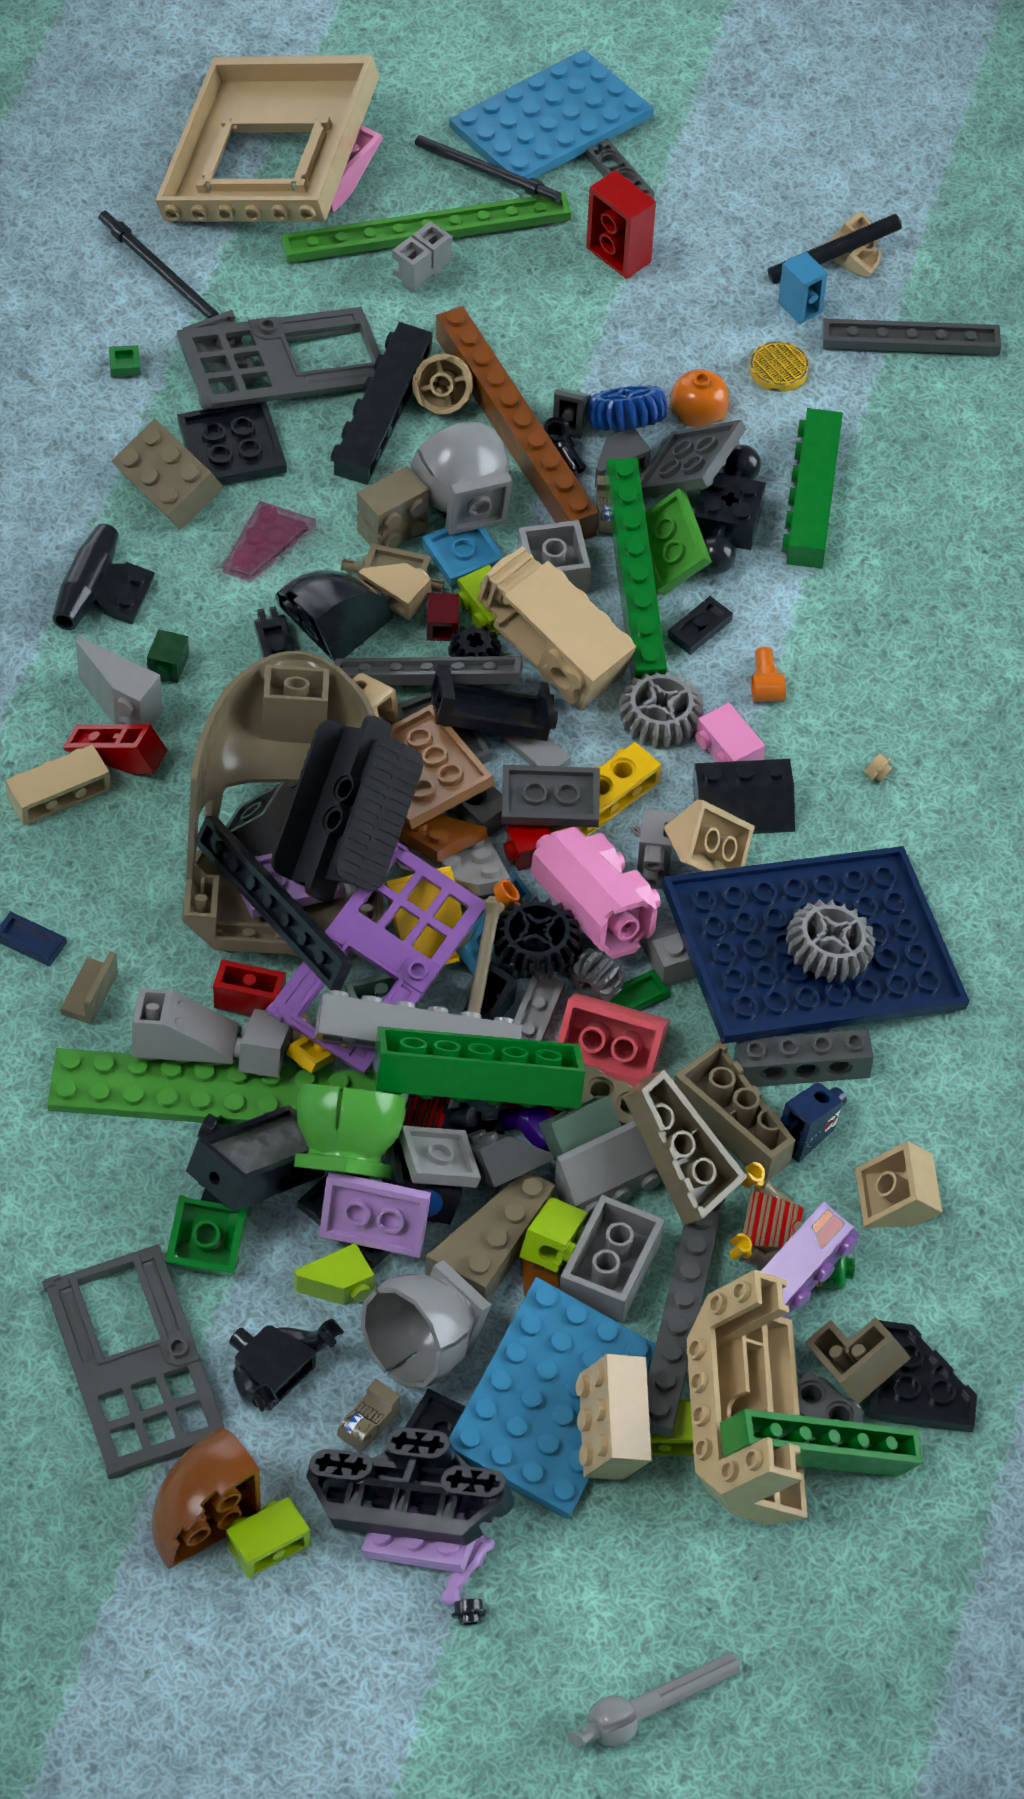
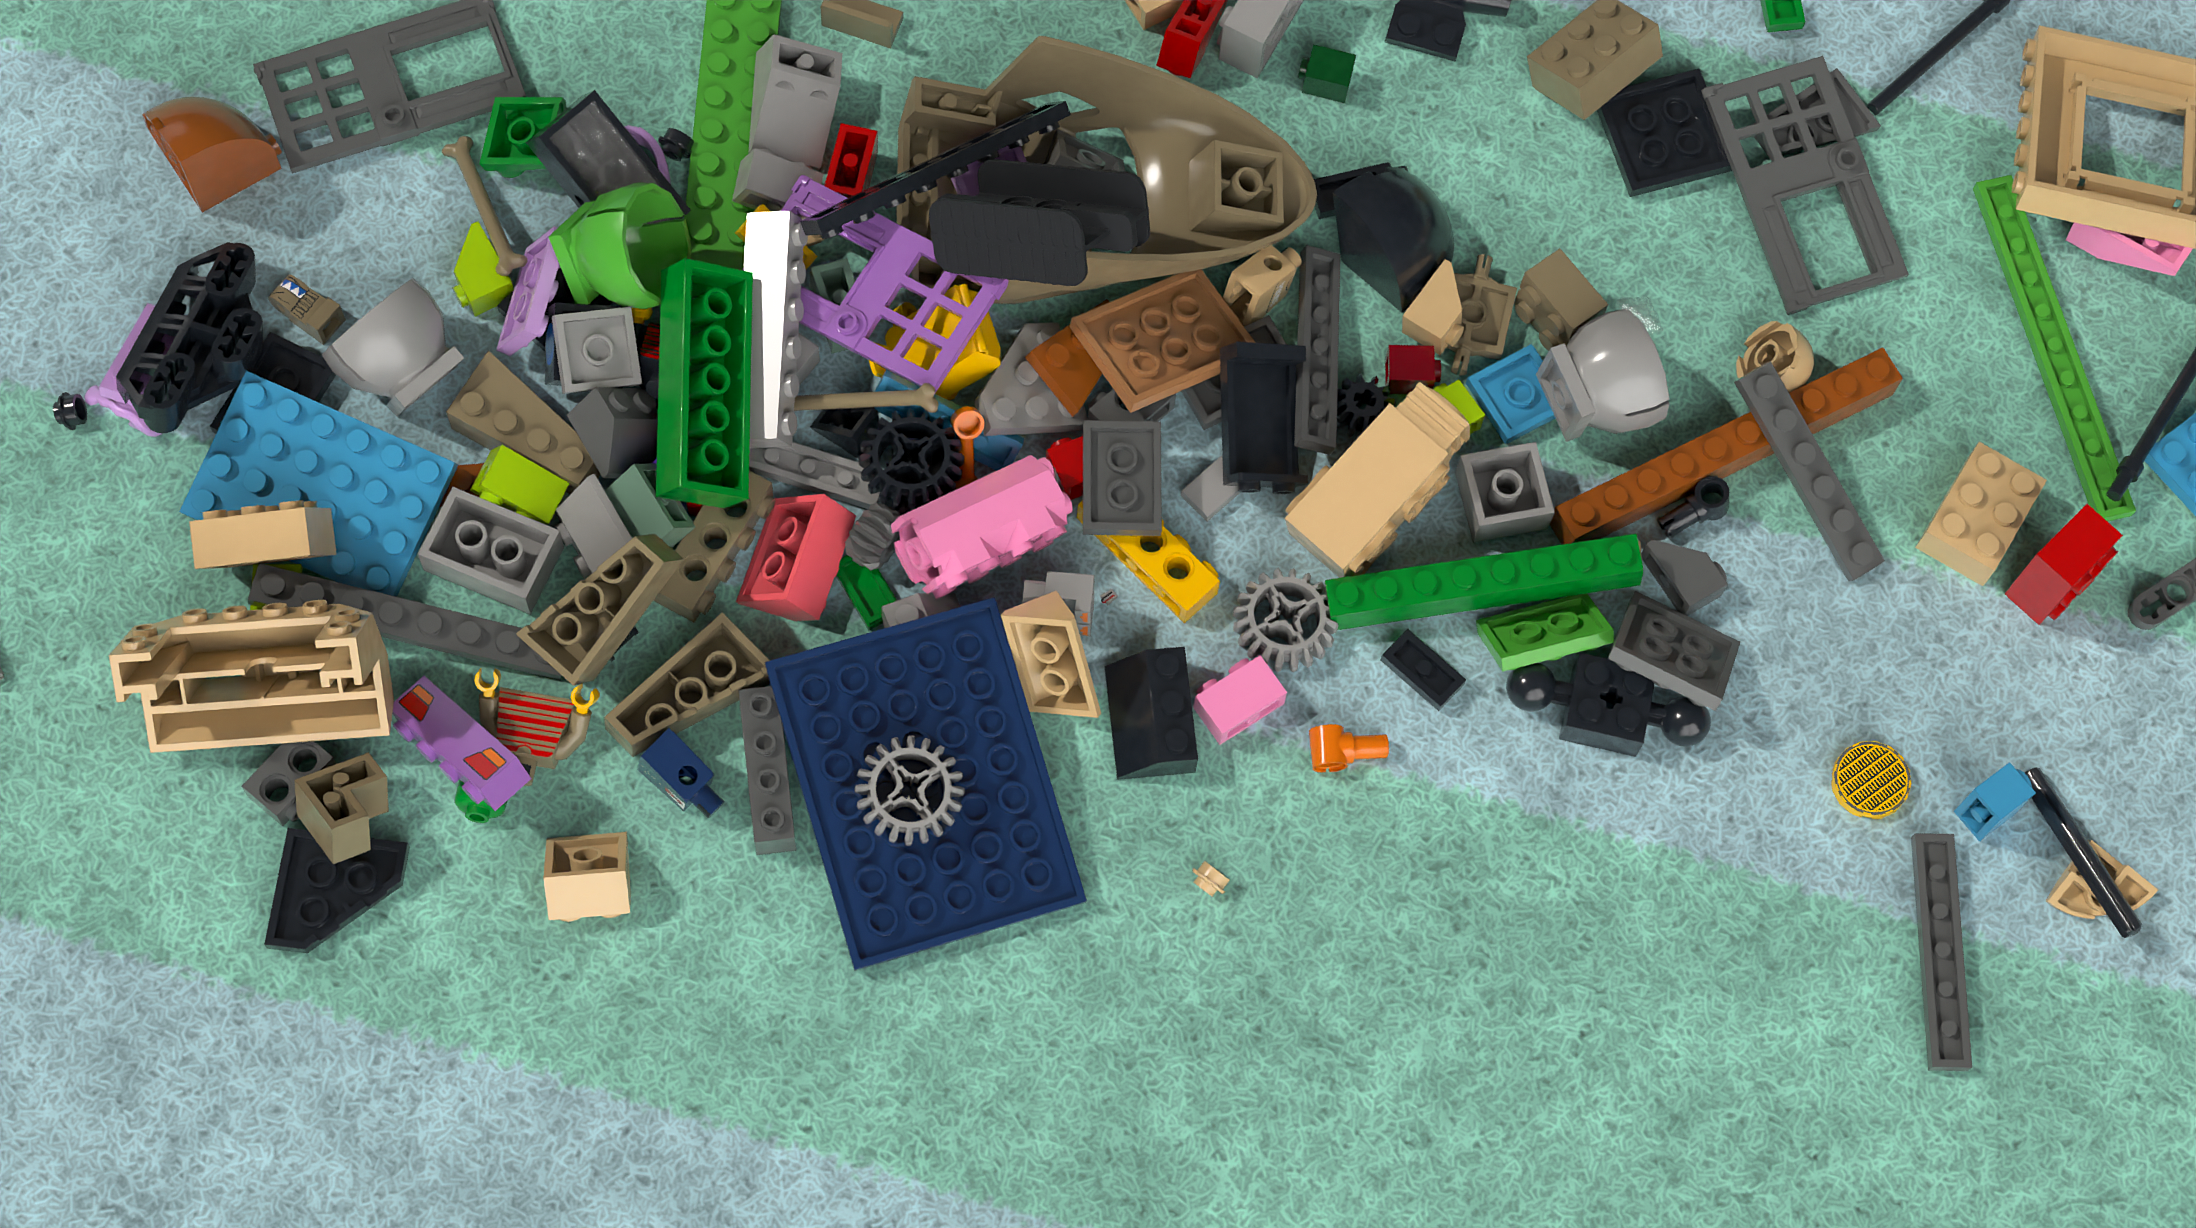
camera: 85 degrees right, 15 degrees up
(265, 538) = (1524, 176): clear pink wing -> none
(268, 1536) = (166, 212): lime brick -> none
(277, 1360) = (367, 207): black torso -> none
(335, 1241) = (507, 258): none -> dark tan piece
(382, 403) = (1738, 292): black brick -> none
(422, 255) = (1969, 329): light grey hips -> none
(539, 367) = (1809, 471): none -> dark grey plate
(568, 278) = (1981, 514): none -> tan brick
(573, 408) = (1754, 514): dark grey slope -> none
(627, 408) = (1754, 576): blue gear -> none
(699, 398) = (1798, 678): orange cylinder -> none
(814, 488) = (1659, 813): green brick -> none
(827, 1442) = (206, 750): green brick -> none

